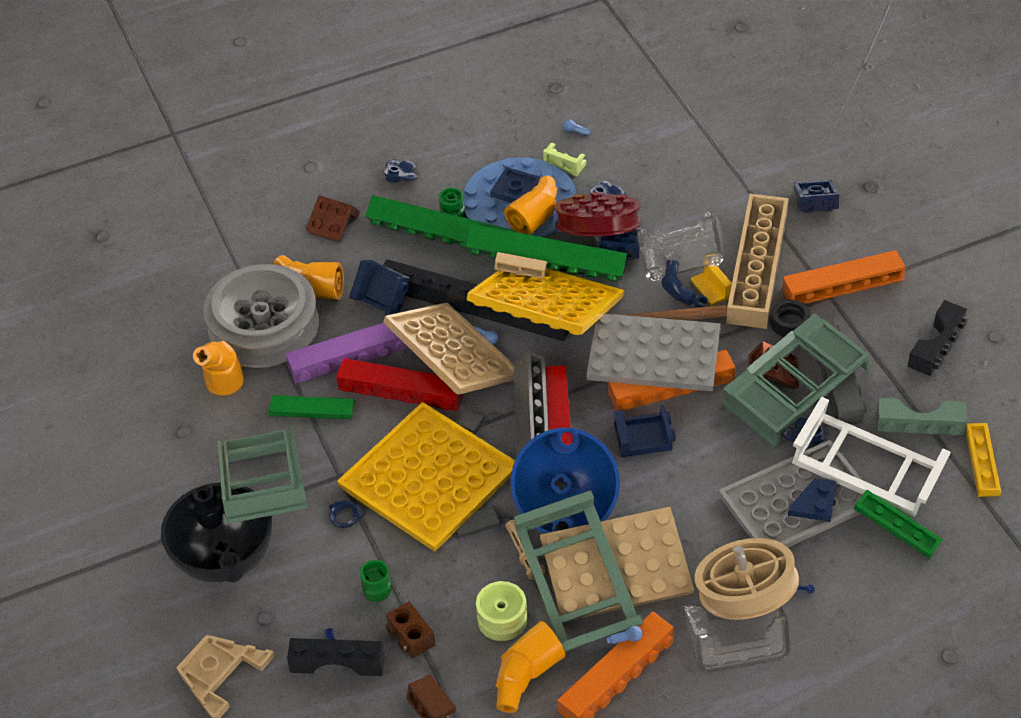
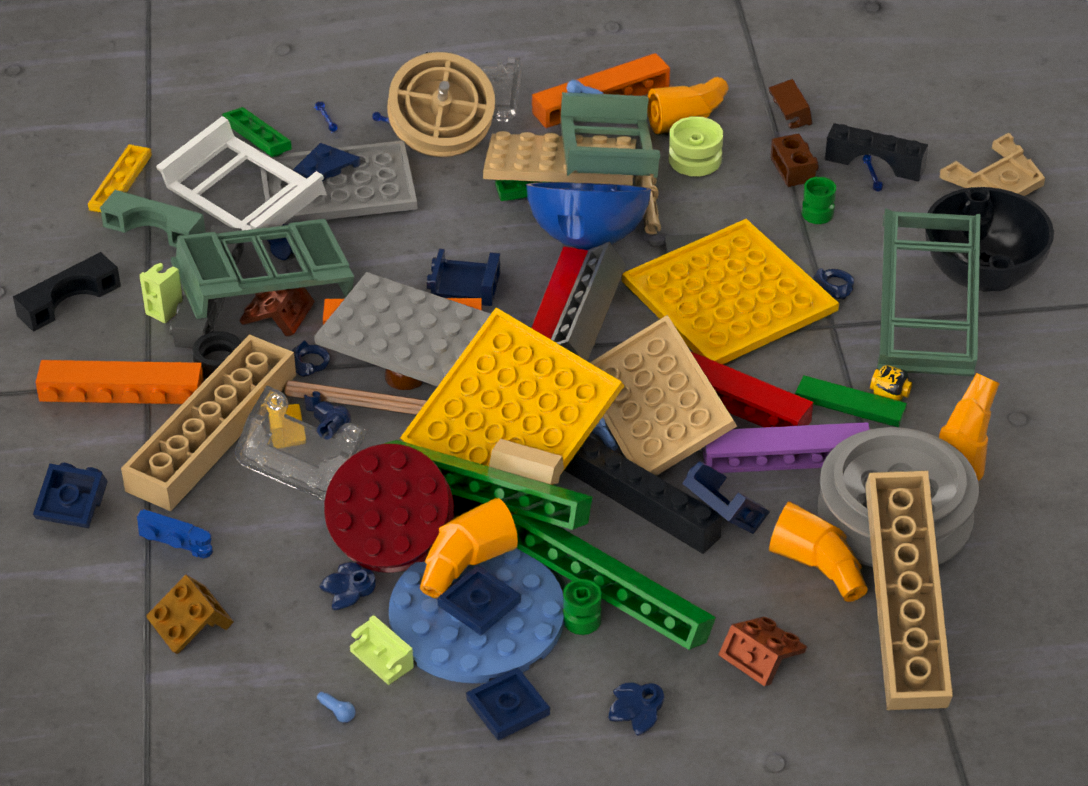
camera: 165 degrees left, 5 degrees down
(243, 234) = (908, 591): none -> tan brick
(282, 420) = (891, 383): none -> yellow head
(476, 150) = (508, 703): none -> dark blue plate
(689, 151) = (186, 612): none -> pearl gold bracket
(731, 190) = (175, 533): none -> blue hinge
(734, 342) = (305, 369): none -> dark blue piece
(863, 333) = (161, 292): none -> yellowish green hinge
(869, 589) = (320, 106): none -> clear blue hinge

